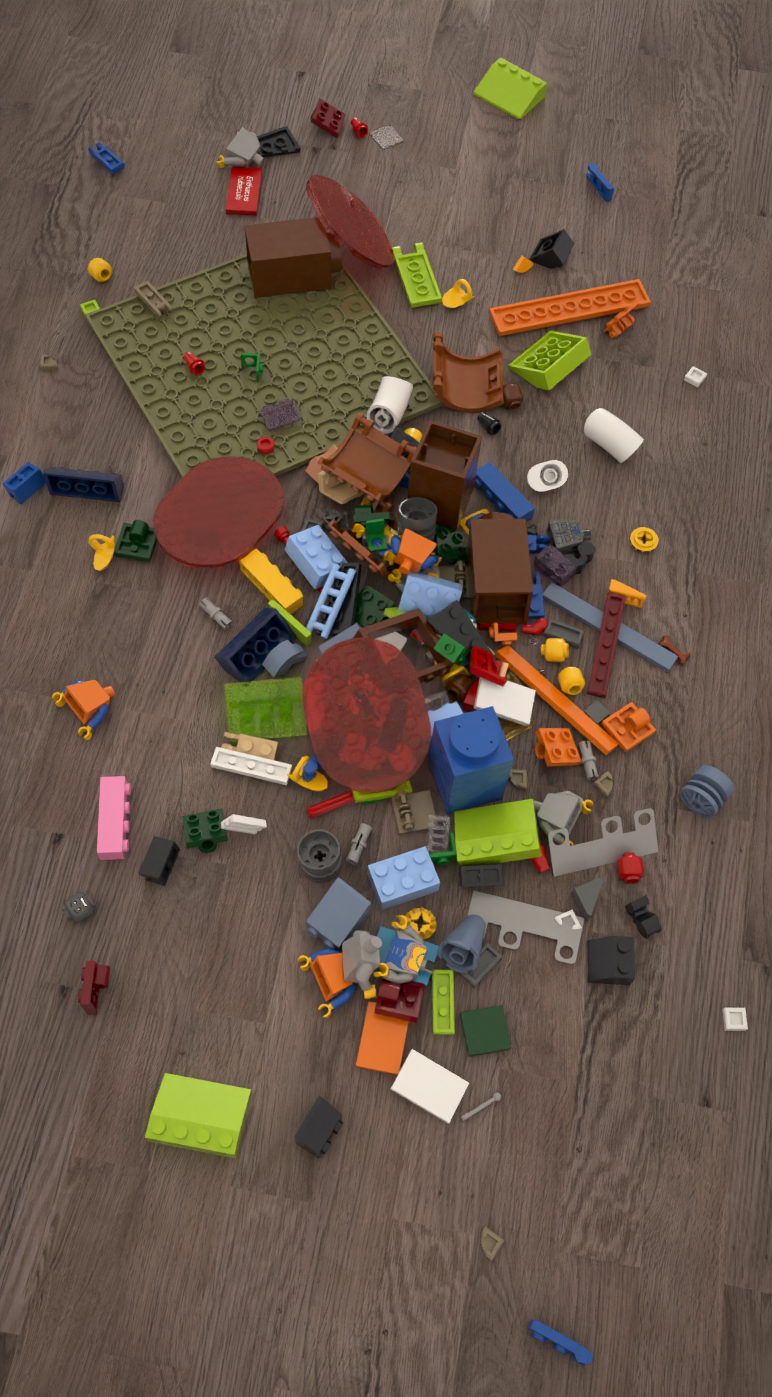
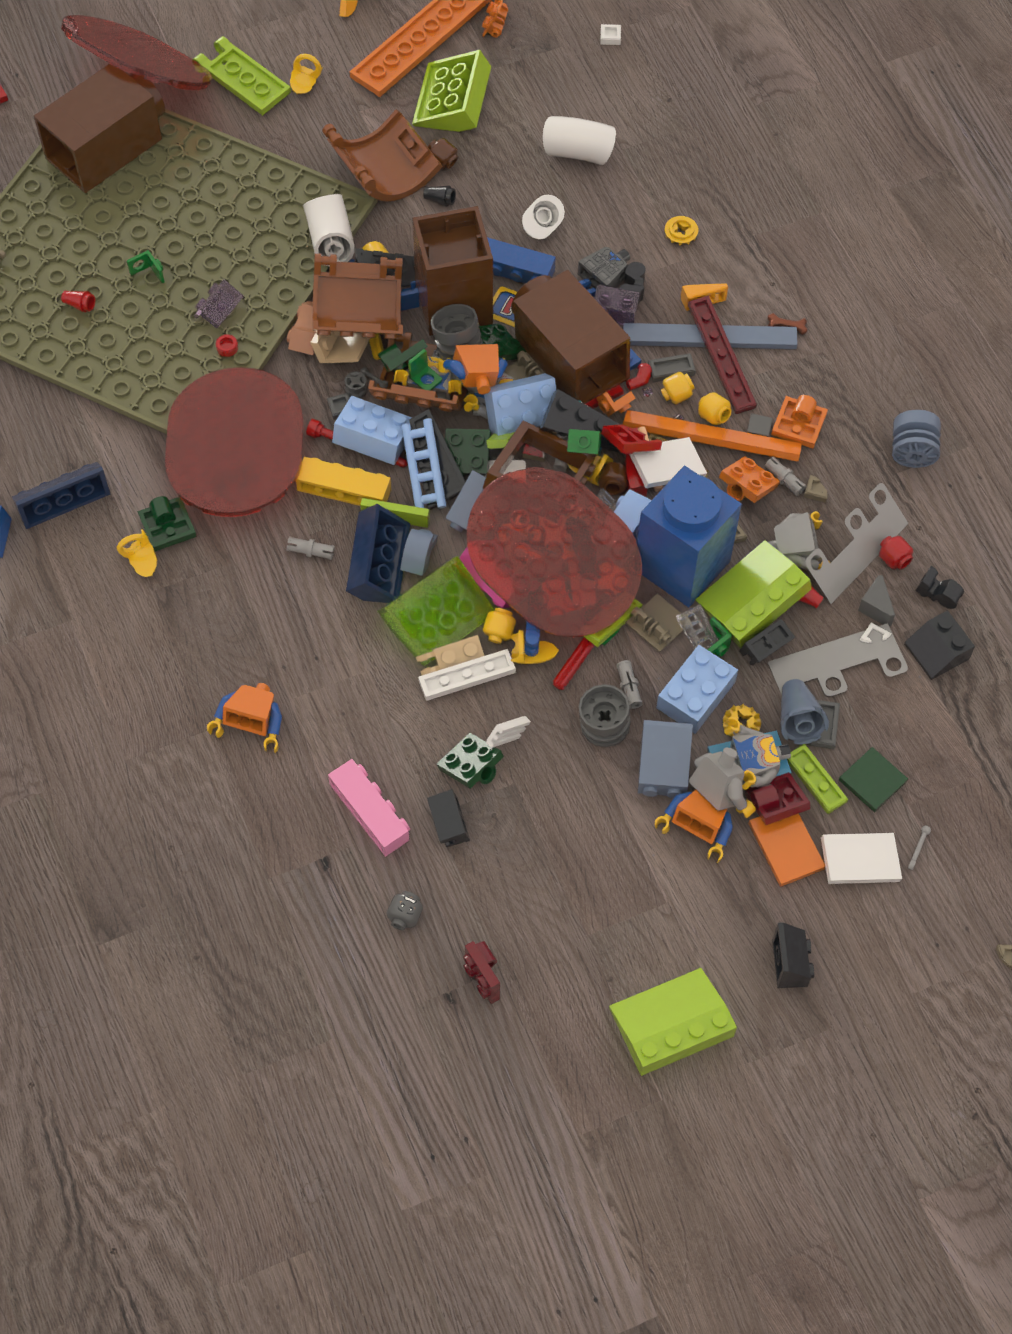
camera: 30 degrees left, 0 degrees up
(298, 744) = (499, 625): none -> yellow head

